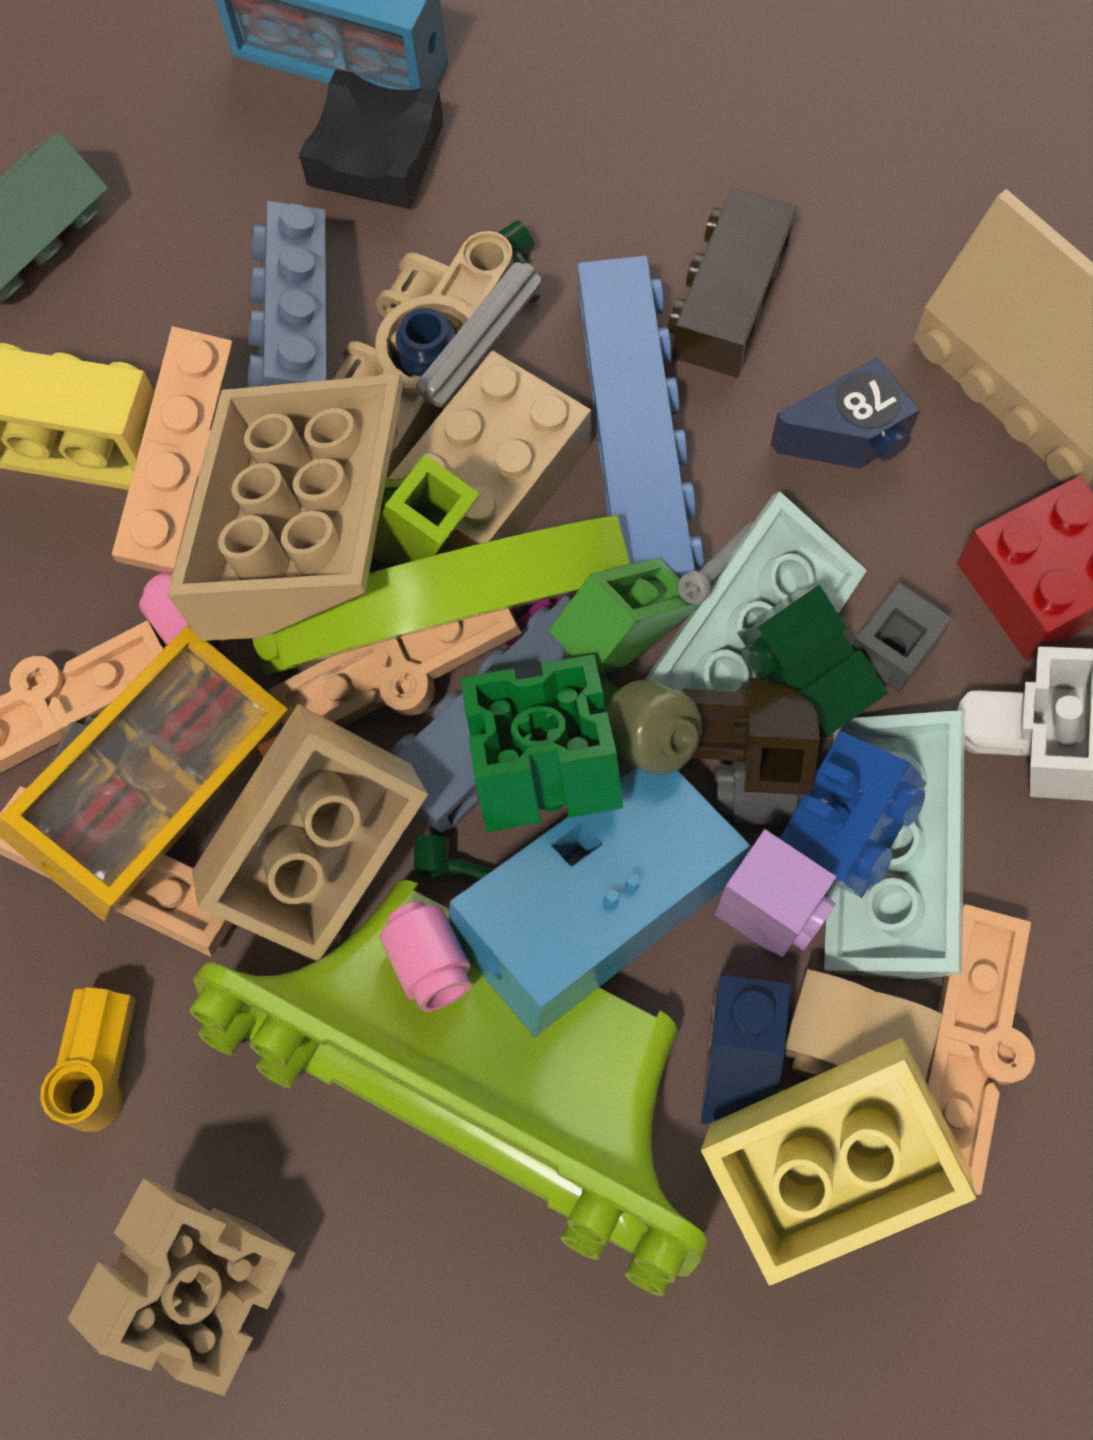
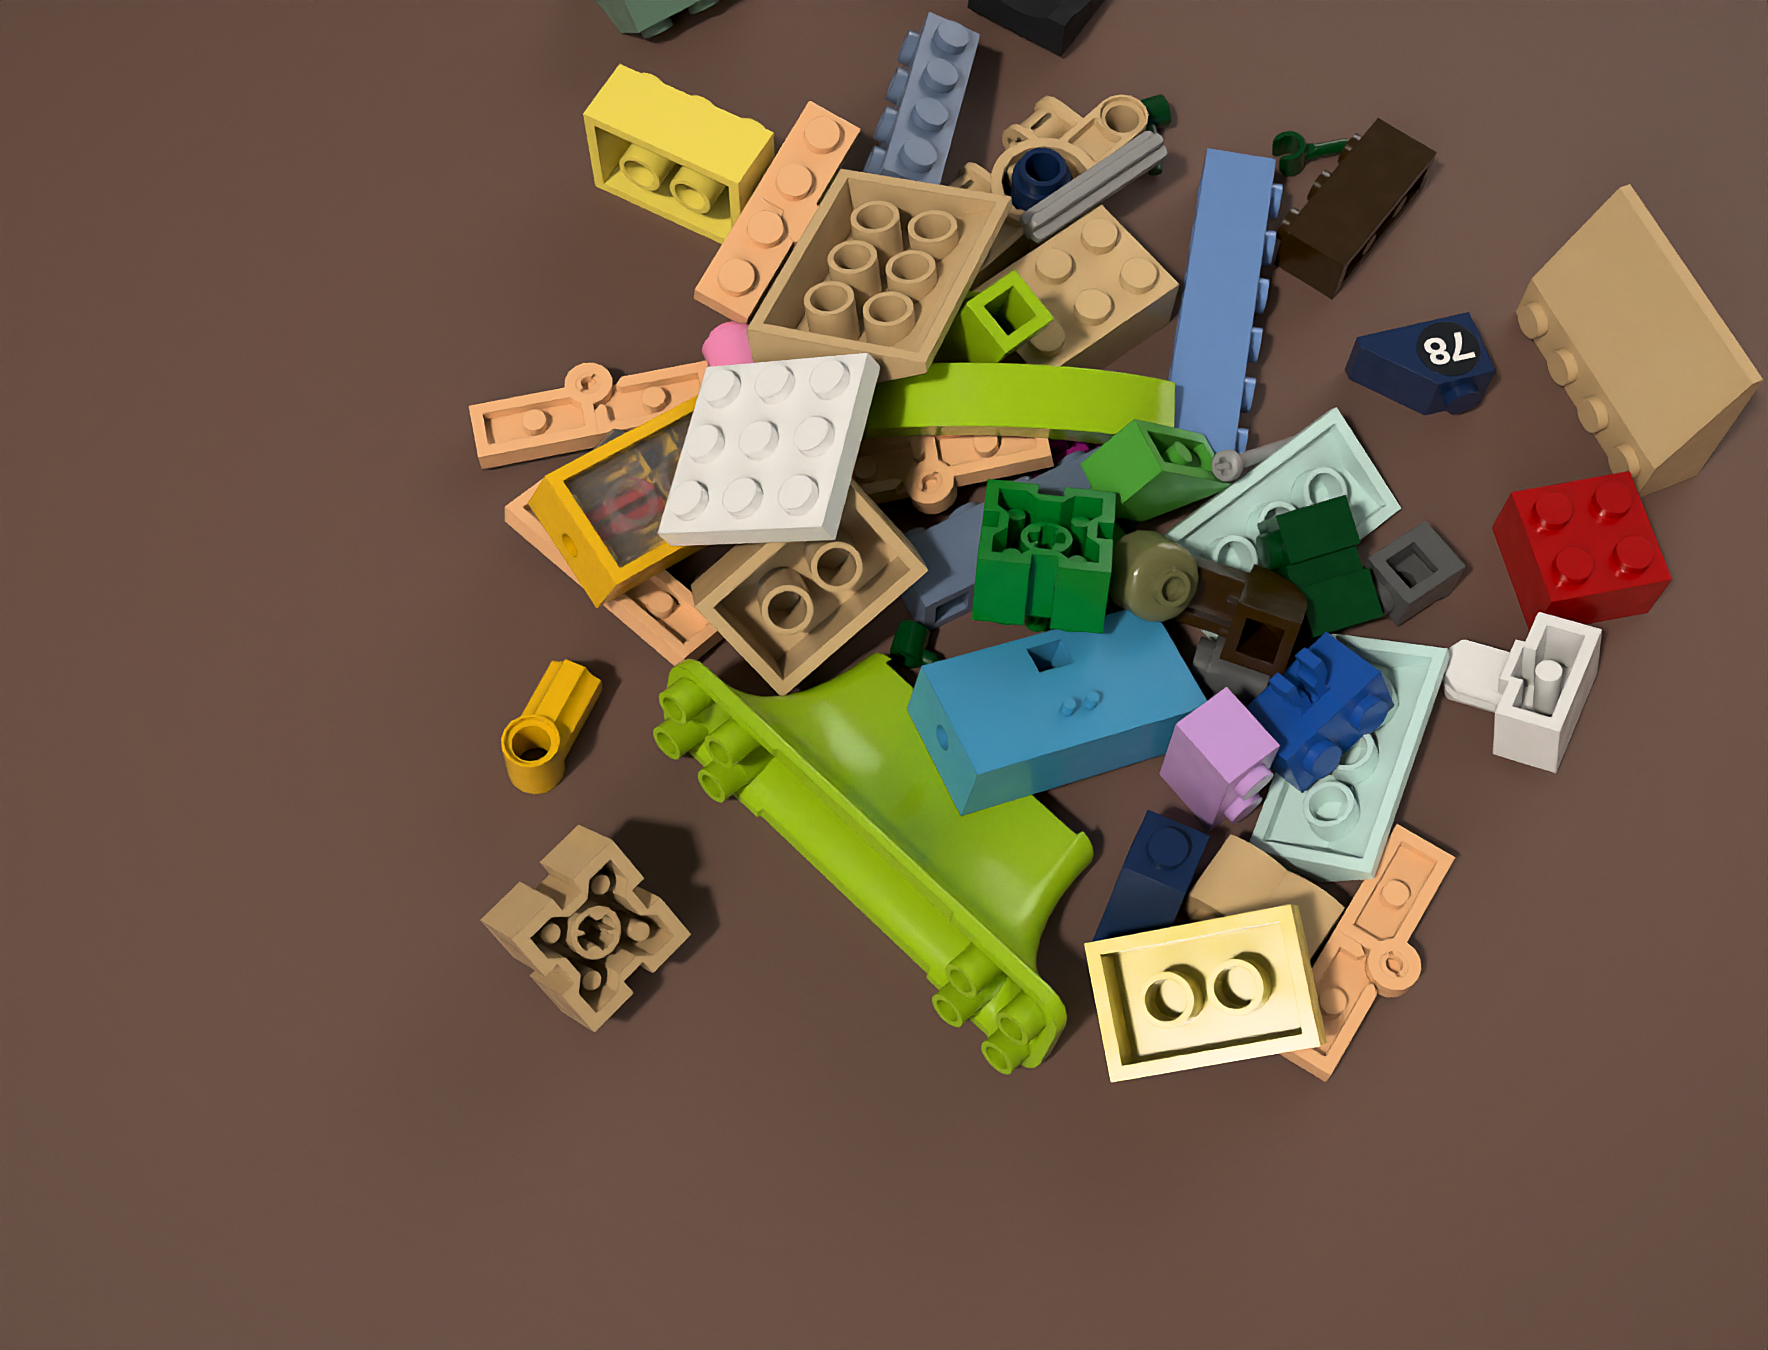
camera: 10 degrees right, 5 degrees down
(229, 721) = (770, 451): none -> white plate
(426, 955) = (884, 712): bright pink brick -> none
(658, 233) = (1295, 145): none -> dark green hand

